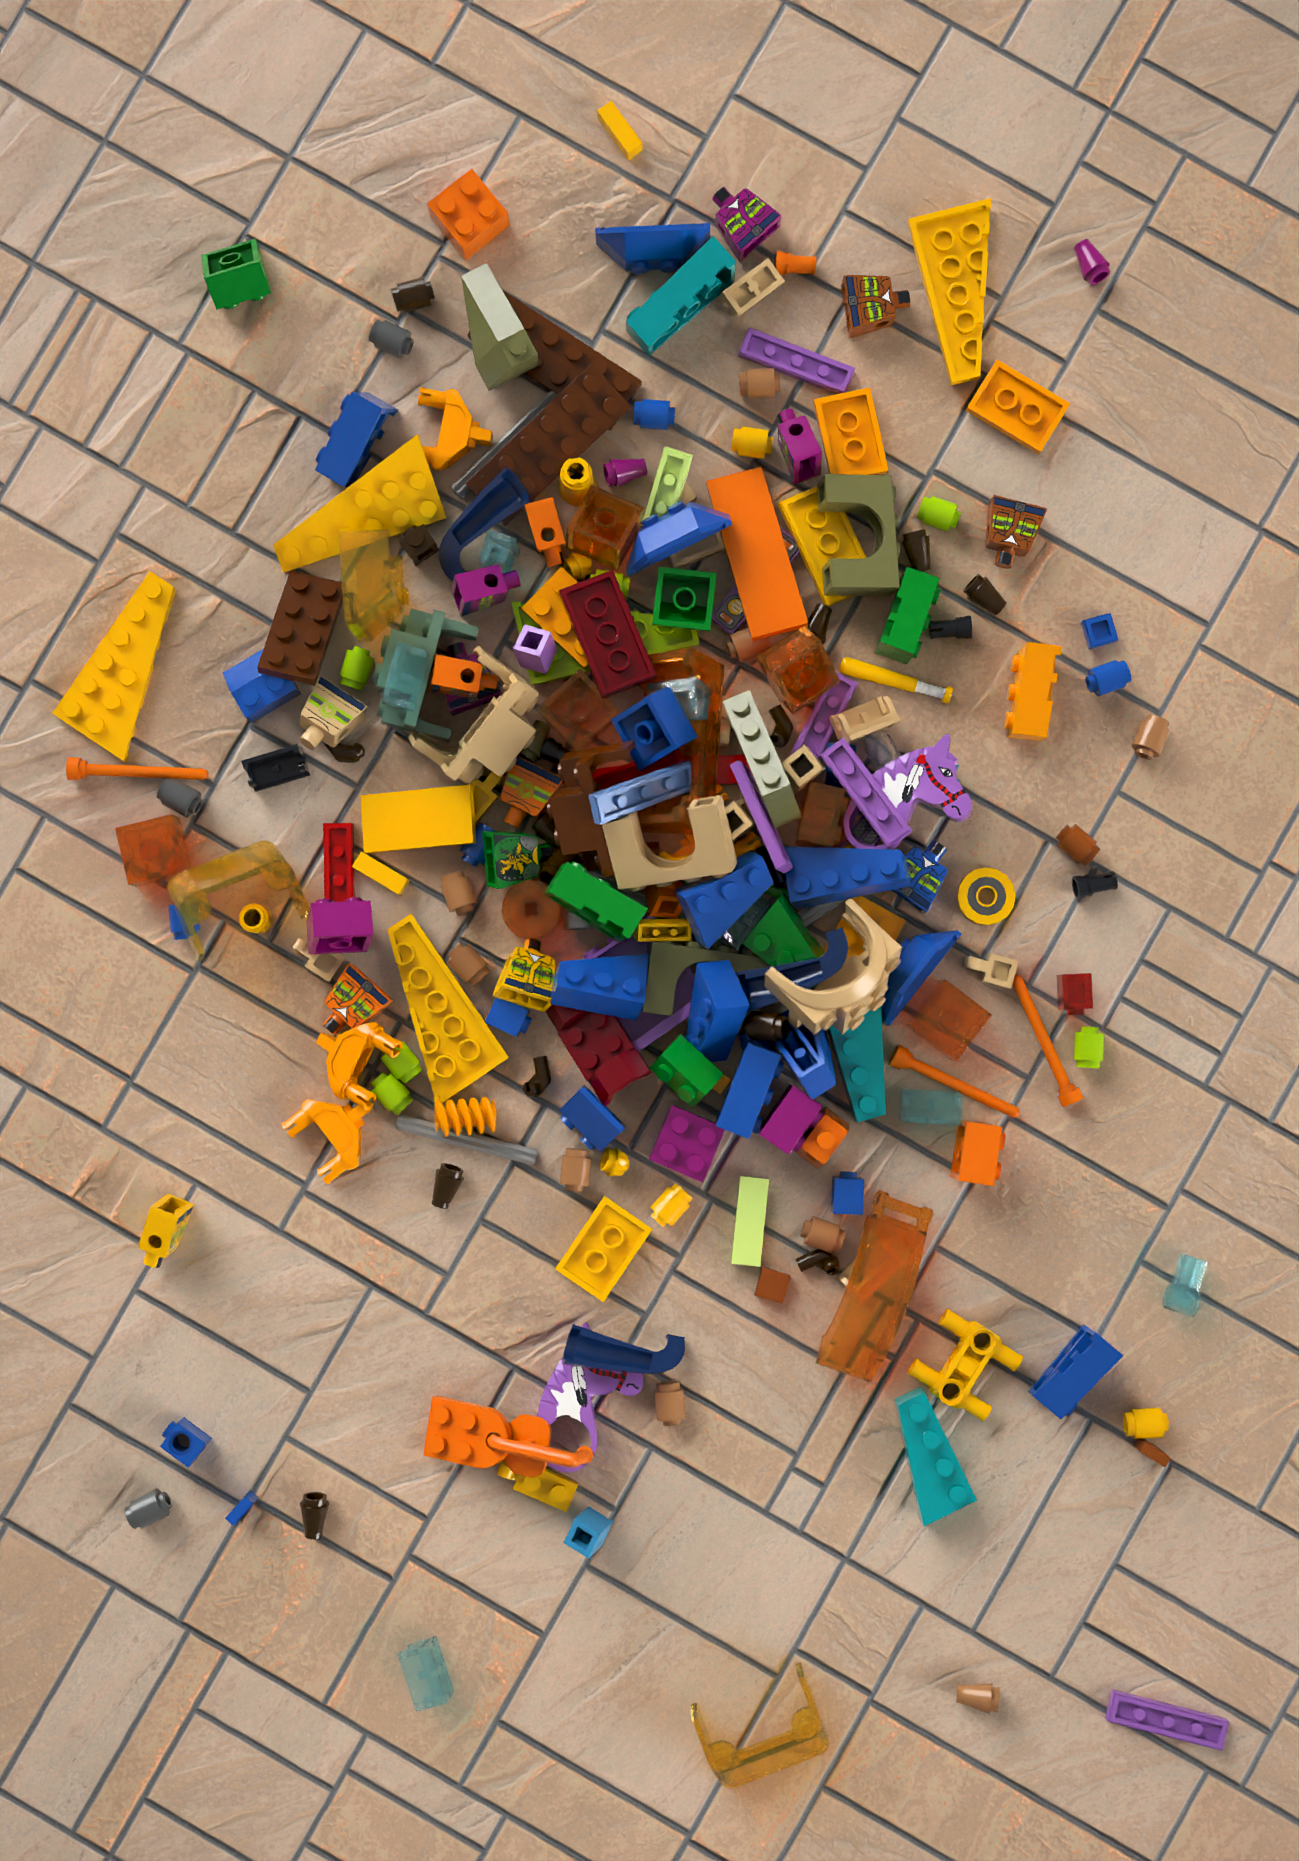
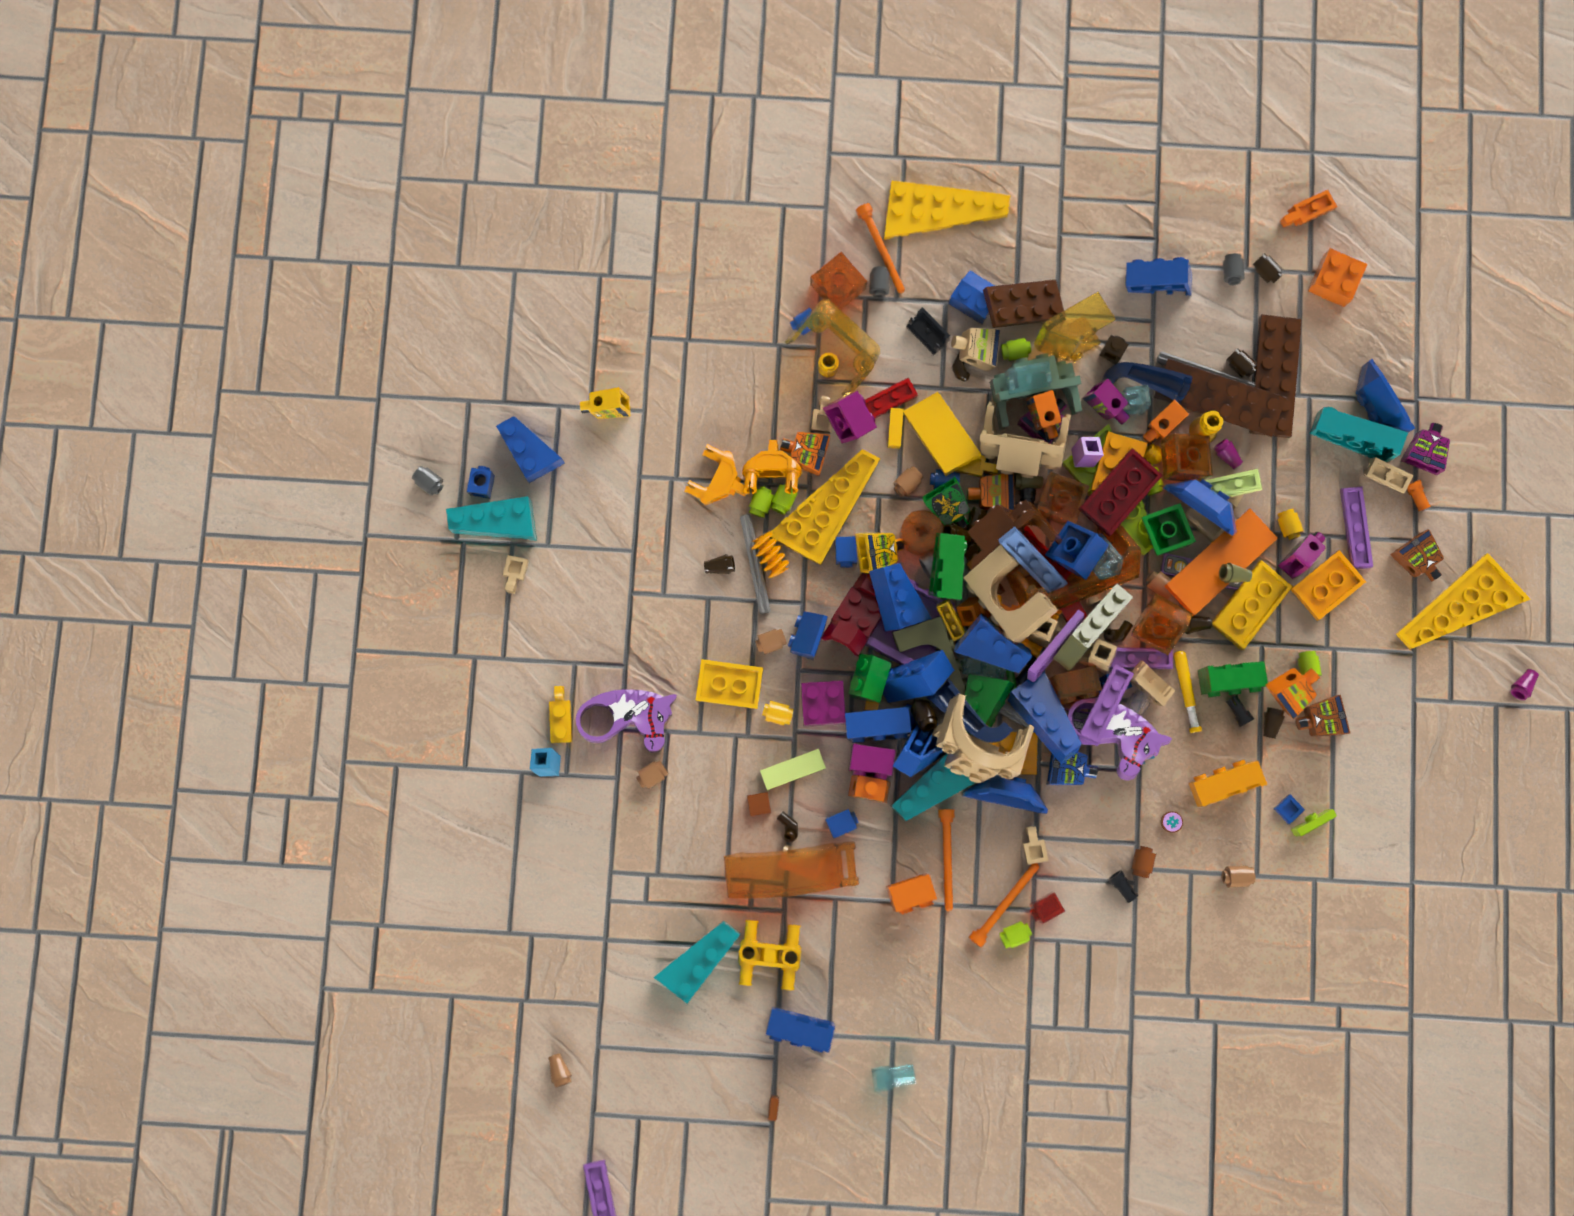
camera: 60 degrees right, 5 degrees down
(175, 1361) = (528, 450): none -> blue wedge
(235, 275) = (1221, 156): green slope -> none
(242, 1507) = (456, 537): blue tile -> none
(244, 1441) = (496, 519): none -> teal wedge
(314, 1512) = (476, 583): dark brown cone -> none
(321, 1451) = (515, 570): none -> tan plate
(362, 201) = (1309, 209): none -> orange hinge
(387, 497) = (1137, 317): yellow wing -> none
(426, 1674) = (406, 704): clear light blue hinge -> none
(457, 429) = (1196, 338): light orange connector -> none
(464, 1435) = (568, 655): orange plate -> none
(468, 964) = (866, 510): medium nougat brick -> none
(497, 335) = (1271, 332): olive wedge -> none
(518, 393) = (1242, 363): none -> dark brown brick
(540, 1079) = (816, 591): dark brown arm -> none
(602, 1352) = (664, 714): dark blue animal -> none
(614, 1162) = (787, 664): yellow plate -> none
(619, 130) = (1442, 344): yellow piece -> none
(653, 414) = (1274, 454): blue brick -> none
(759, 383) = (1330, 510): medium nougat brick -> none
(769, 1756) = (476, 970): clear yellow windscreen -> none
(780, 547) = (1232, 573): none -> olive cone
(822, 1235) = (807, 820): medium nougat brick -> none
(873, 500) = (1294, 619): olive arch -> none
(917, 549) = (1279, 663): dark brown cone -> none
(930, 1107) = (924, 850): clear light blue hinge -> none
(948, 1020) = (986, 833): clear orange brick -> none
(960, 549) = (1293, 690): none -> orange torso
(1002, 891) = (1091, 819): yellow tile -> none
(1017, 407) = (1405, 683): light orange plate -> none
(1044, 783) = (1171, 821): none -> tile
(1108, 677) = (1262, 829): blue brick -> none
(1130, 610) = (1313, 821): none -> lime plate
(1145, 1423) = (790, 1094): yellow brick -> none

